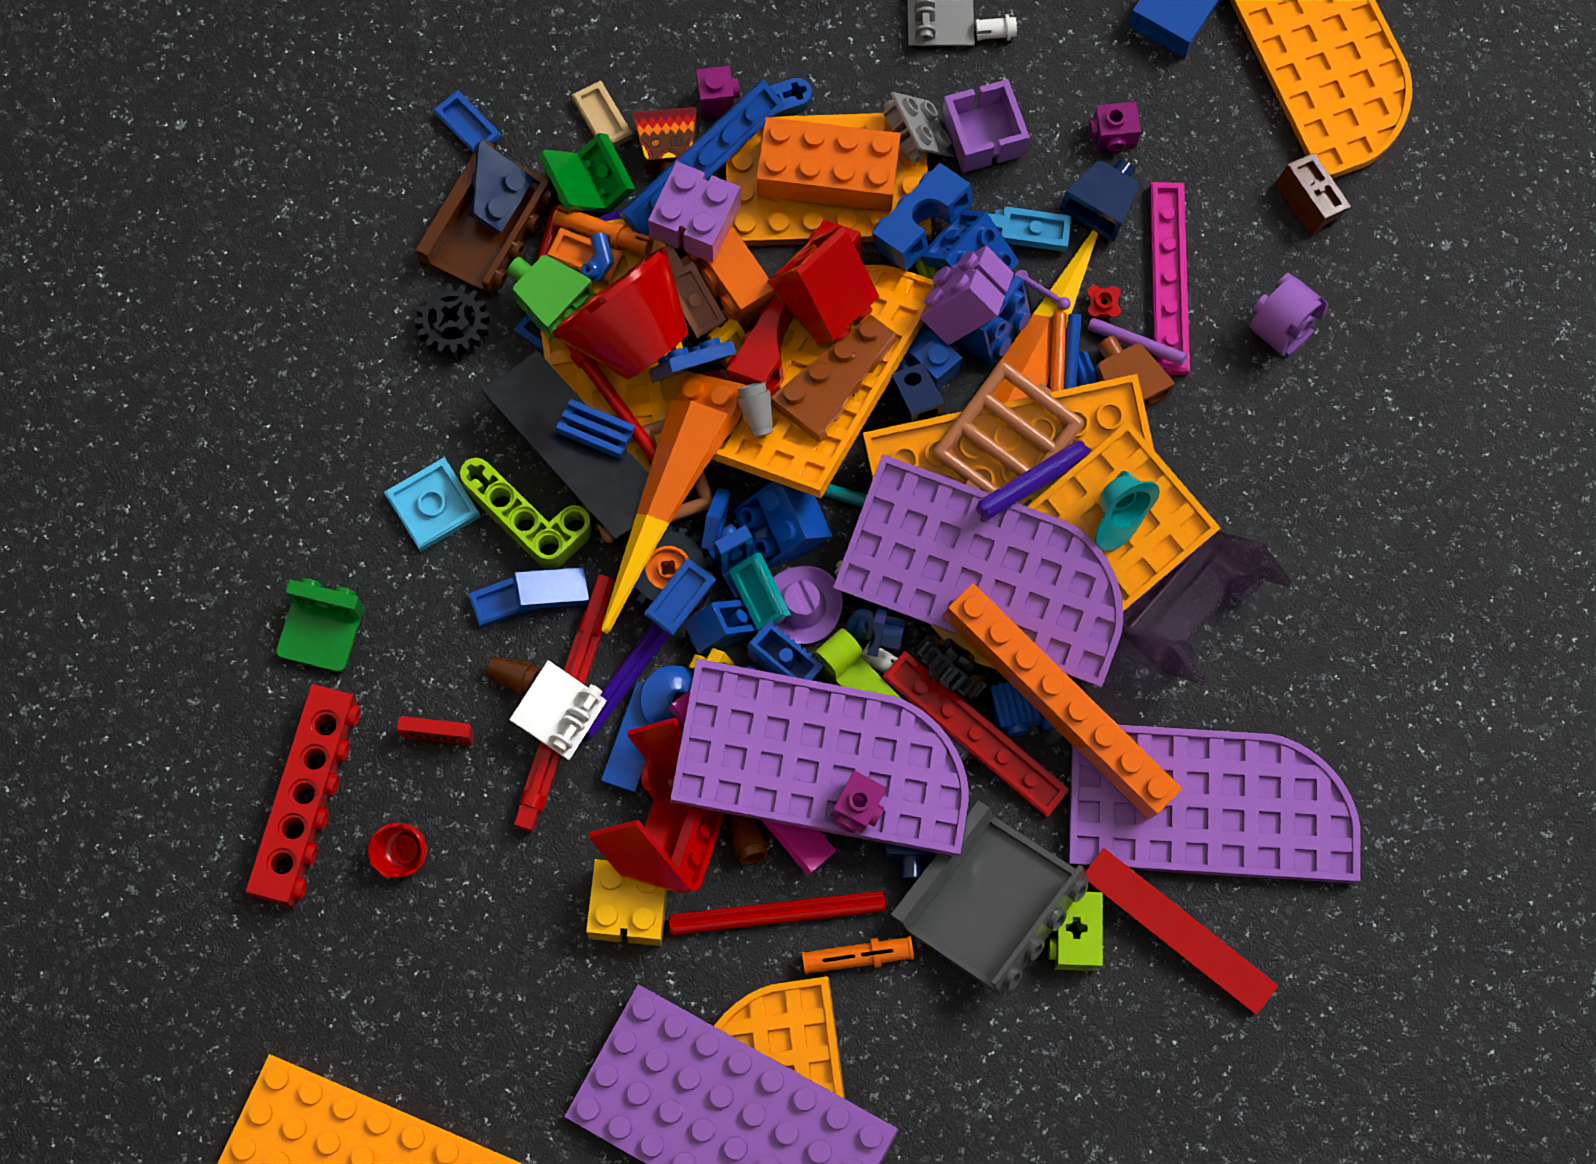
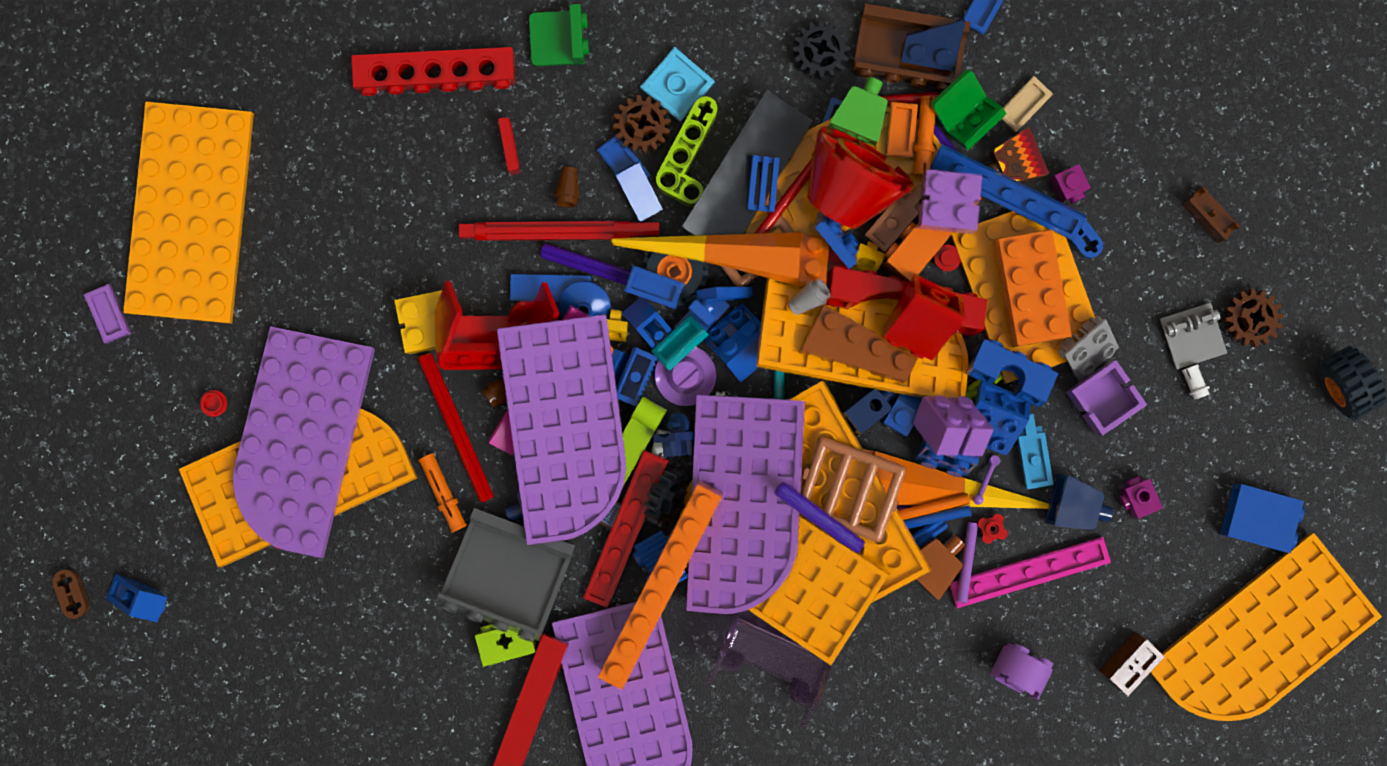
camera: 75 degrees right, 15 degrees up
(397, 850) = (414, 149): red hair -> none
(469, 573) = (631, 122): none -> reddish brown gear
(558, 710) = (547, 227): white hinge -> none
(602, 259) = (898, 144): blue arm -> none
(762, 251) = (947, 258): none -> red plate
(858, 804) = (534, 463): magenta brick -> none
(1124, 507) = (818, 589): teal piece -> none

